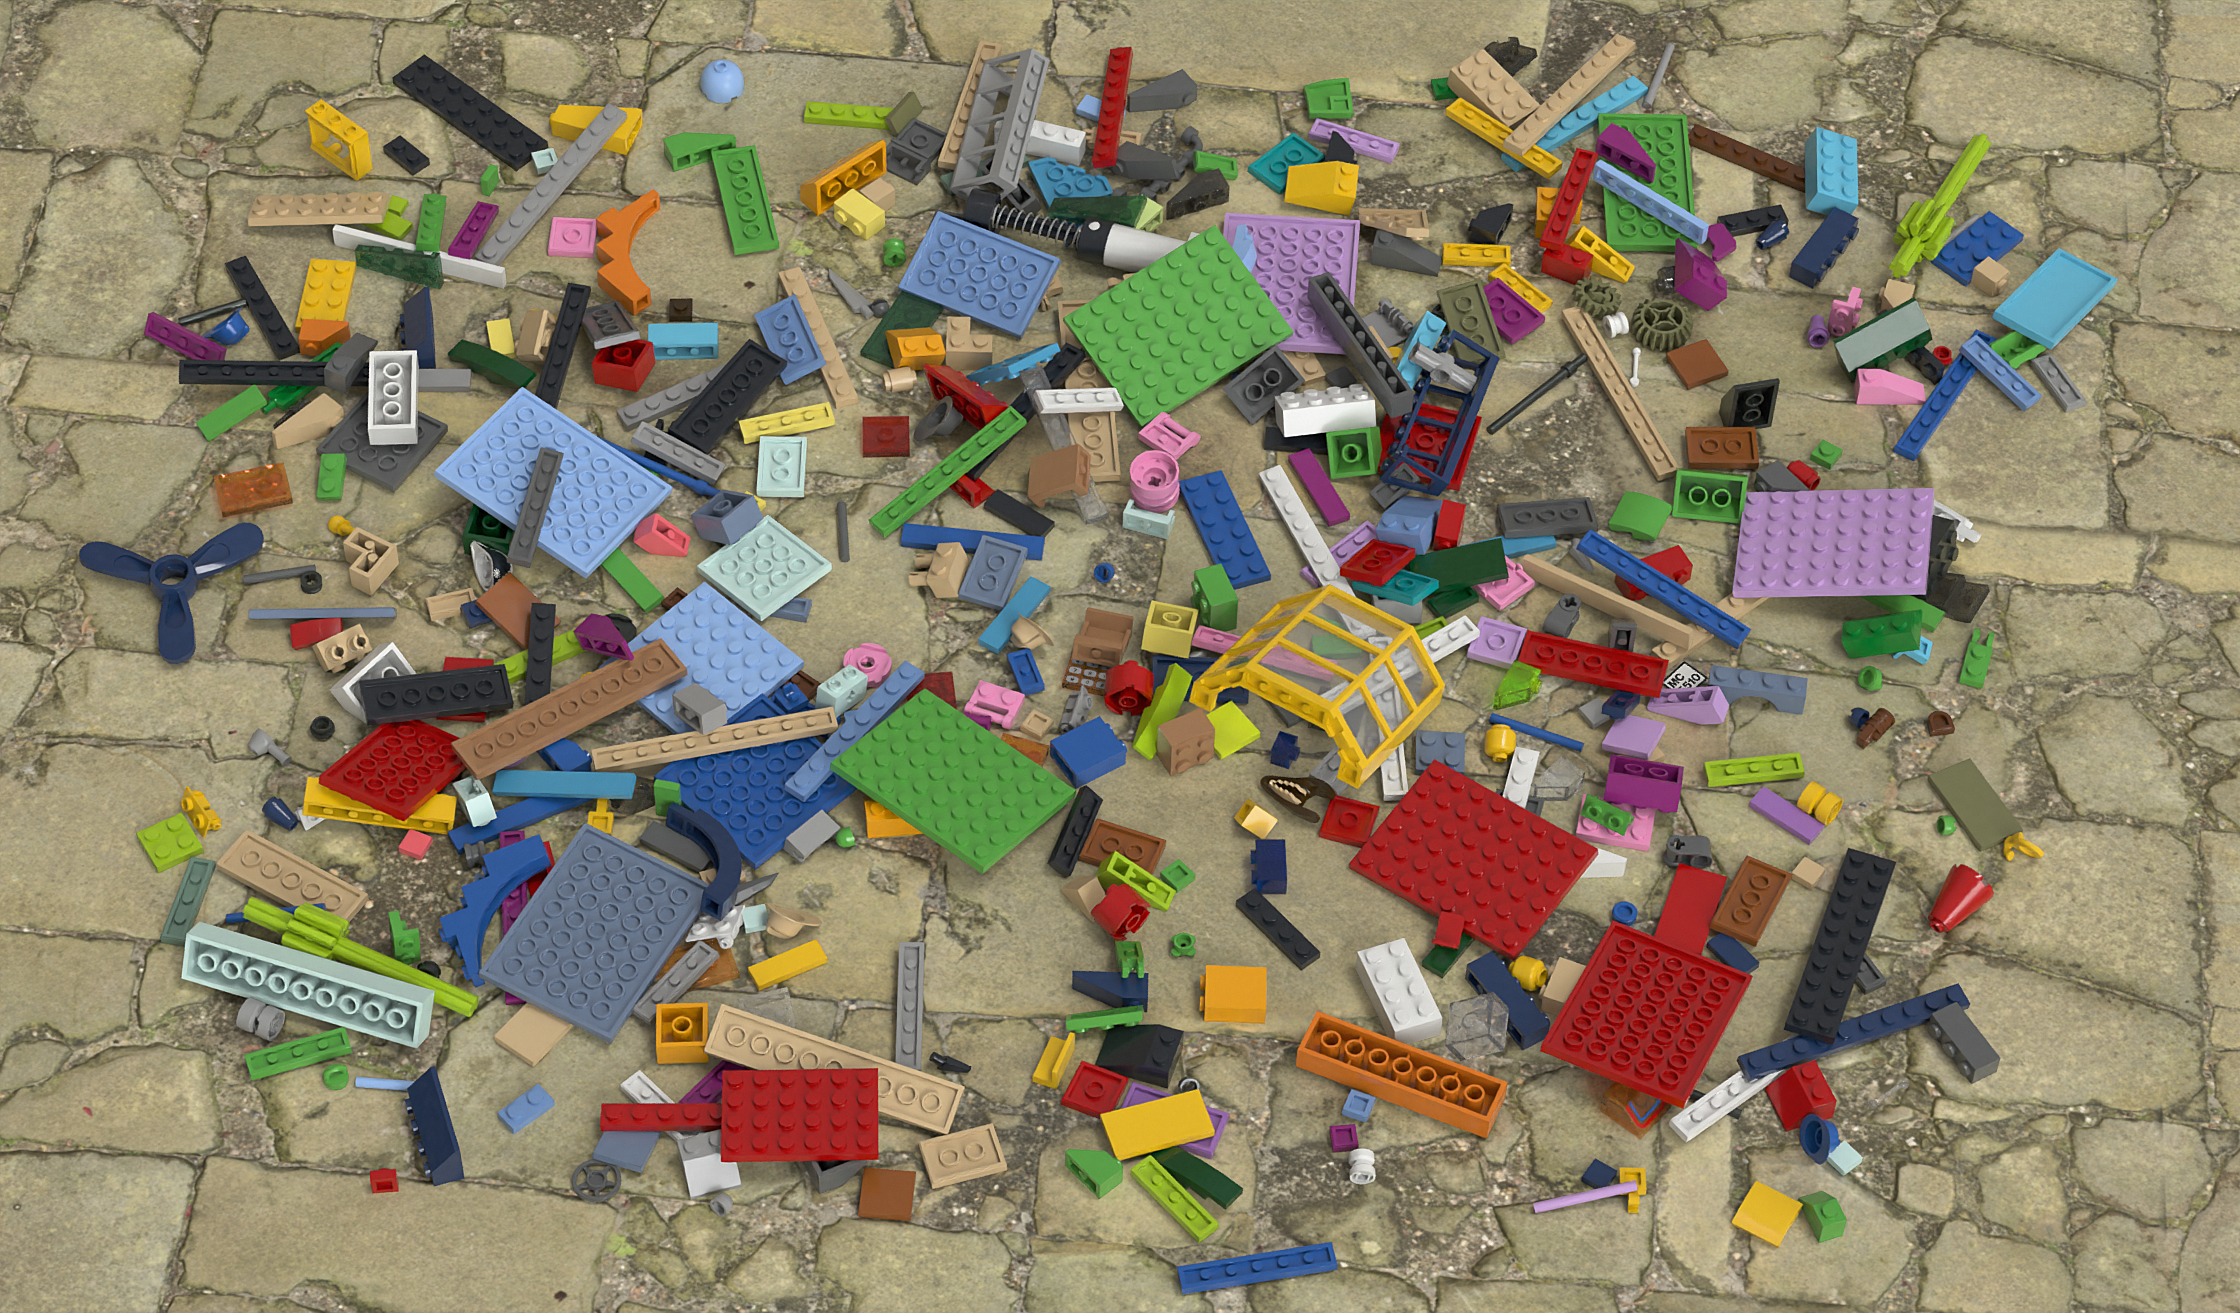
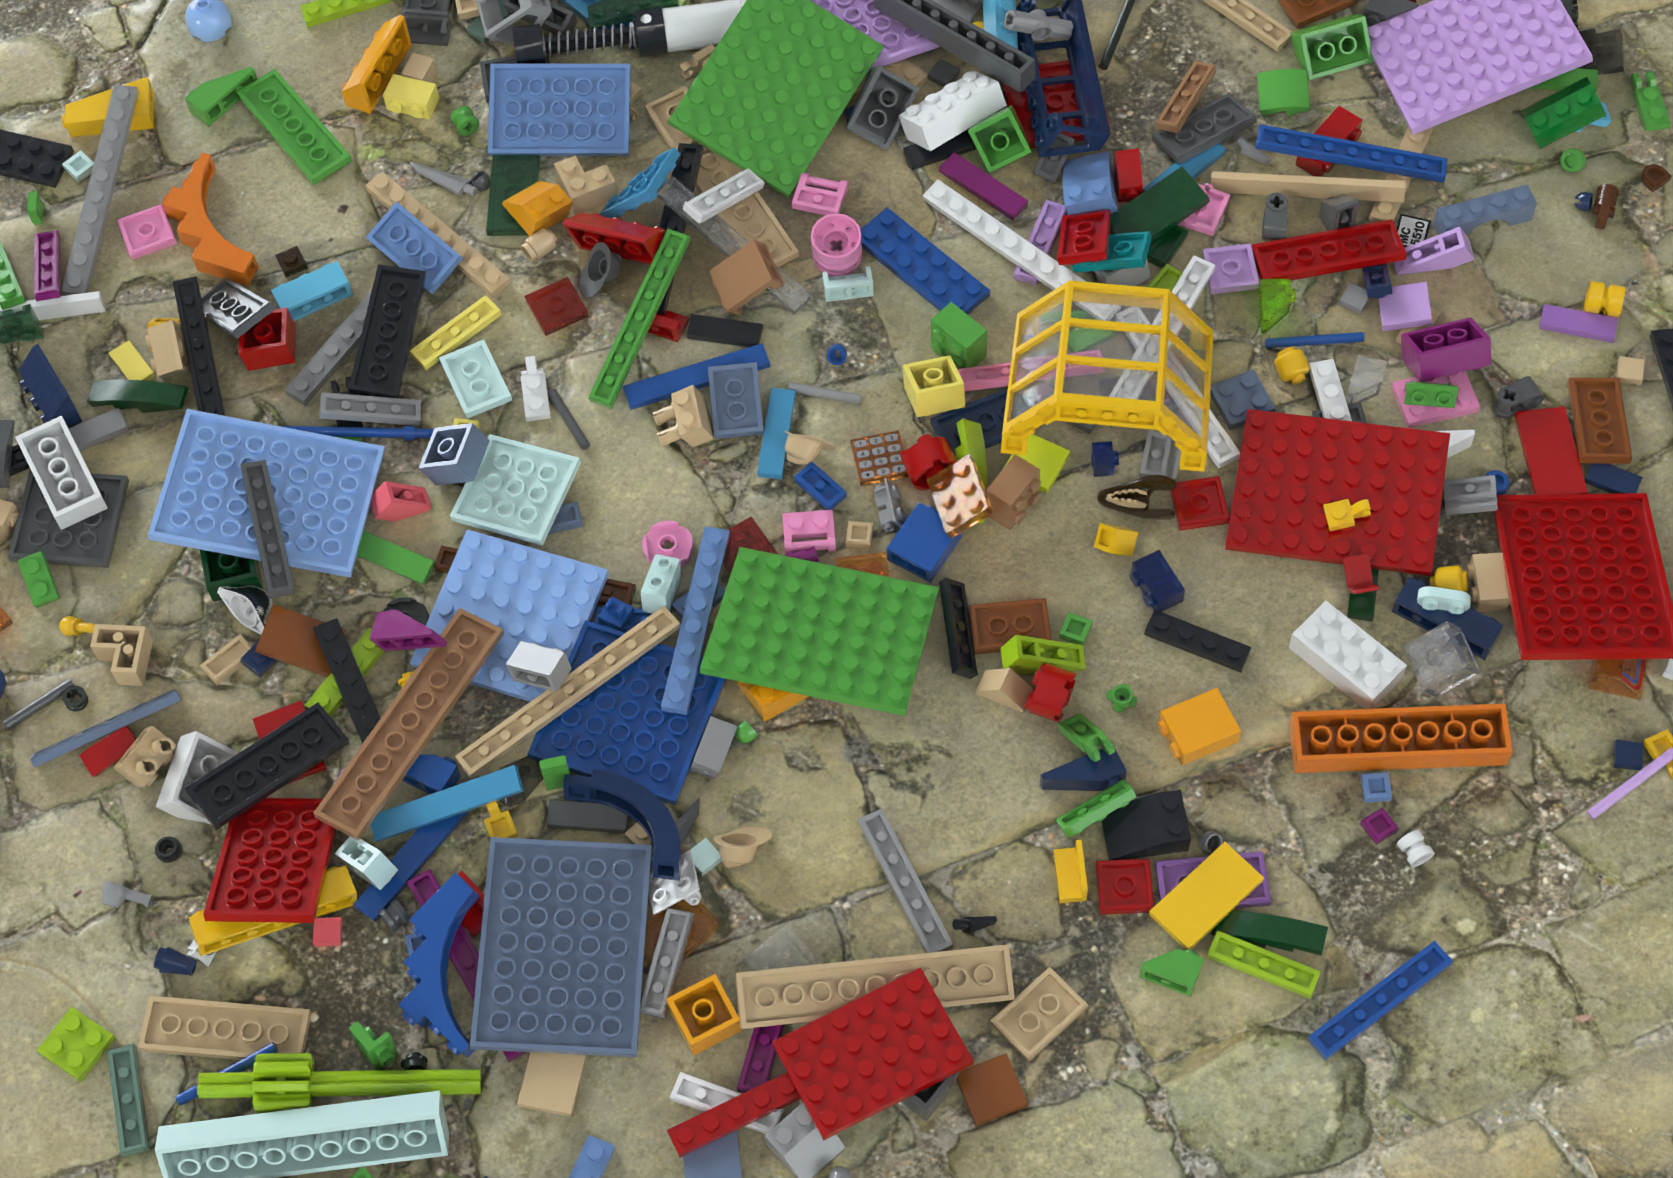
camera: 20 degrees left, 10 degrees up
(196, 807) = (80, 991): yellow hinge -> none
(787, 965) = (761, 891): yellow tile -> none
(826, 497) = (535, 392): none -> white hinge
(1068, 595) = (825, 393): none -> light grey bar
(1103, 637) = (875, 421): medium nougat panel -> none
(1134, 723) = (959, 496): none -> clear orange plate
(1461, 875) = (1342, 515): none -> yellow plate
(1506, 978) = (1443, 599): none -> light aqua plate
(1547, 484) = (1186, 97): none -> medium nougat tile
(1592, 911) = (1470, 495): none -> light grey plate
(1753, 769) = (1525, 292): lime plate -> none

